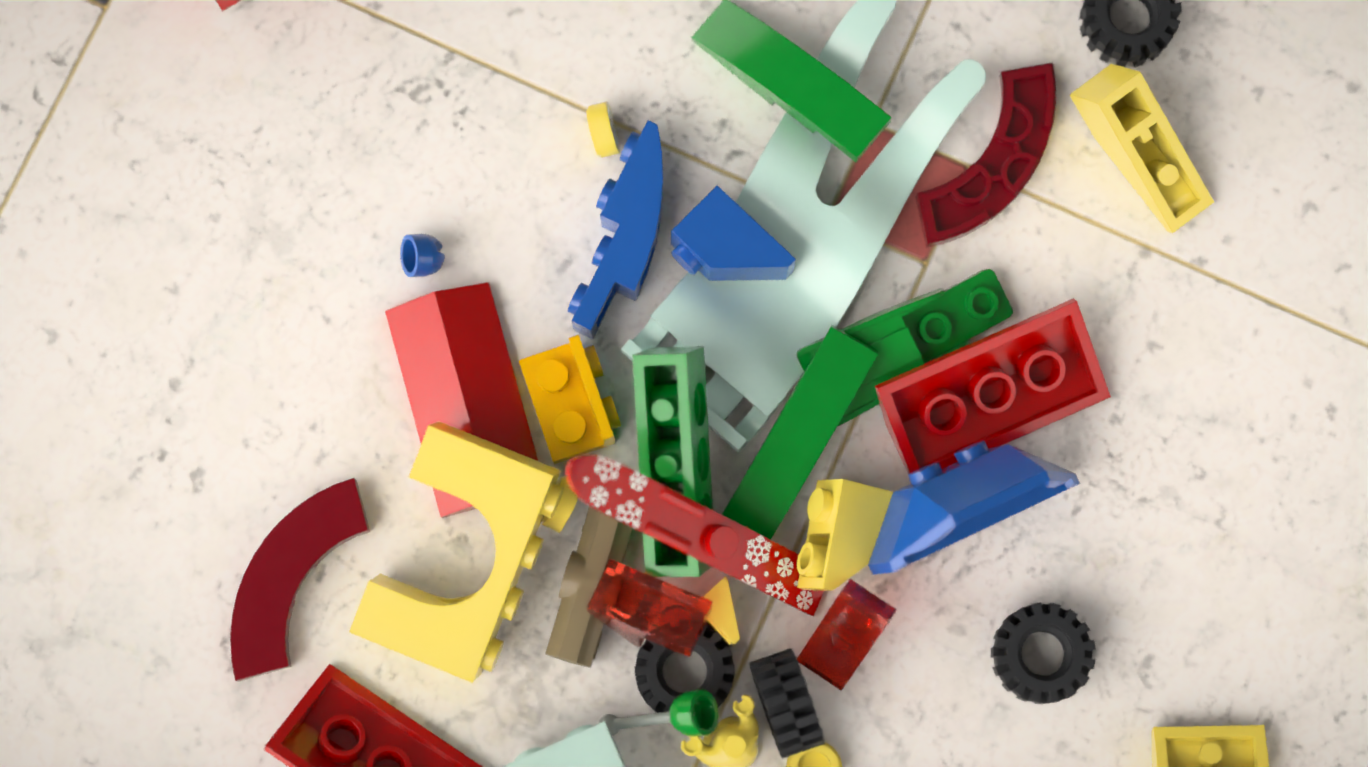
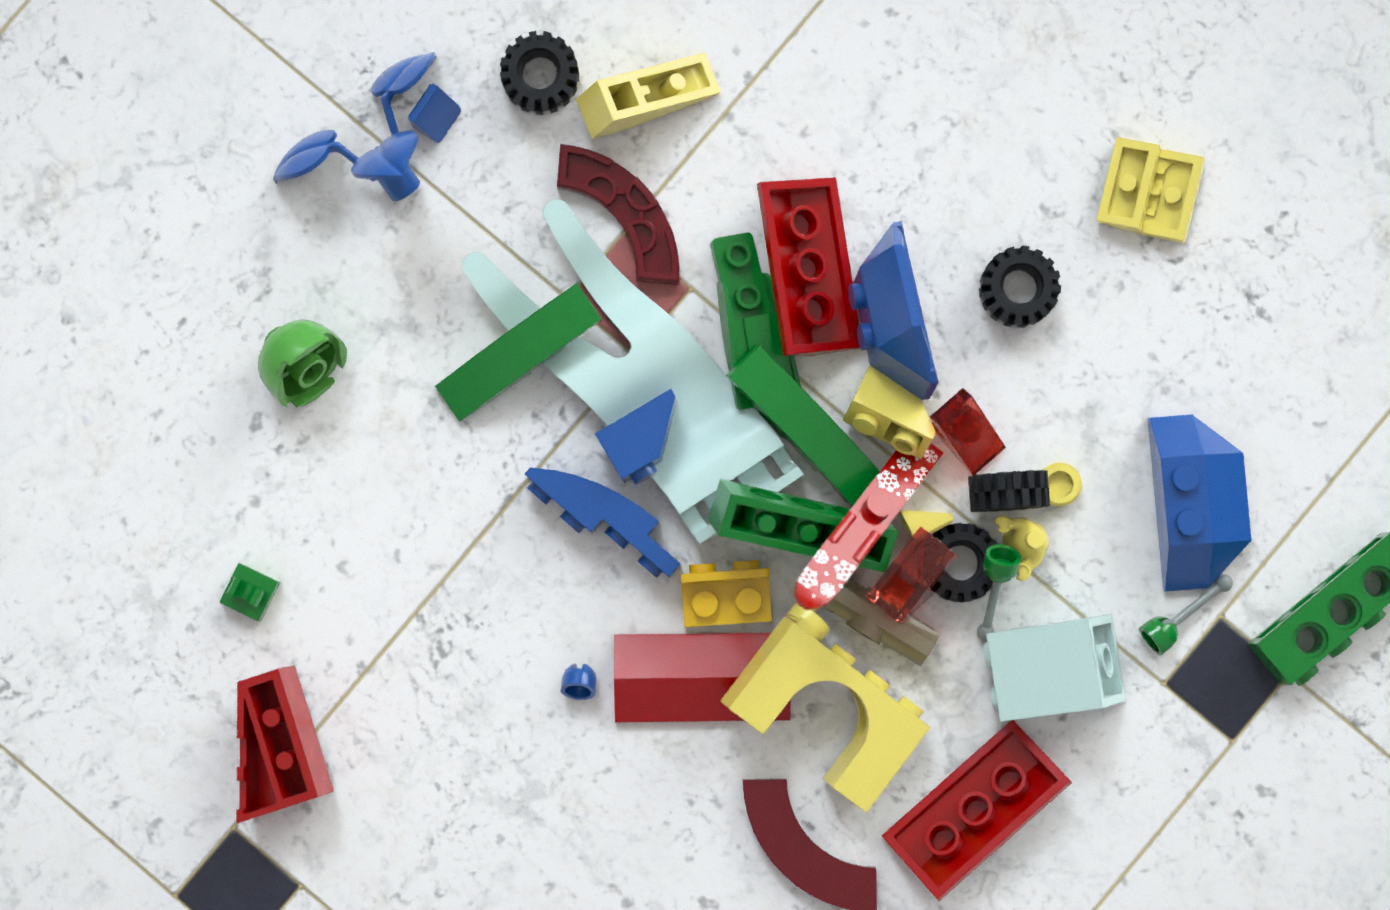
camera: 75 degrees left, 5 degrees up
(603, 129) = (517, 511): light yellow tile -> none

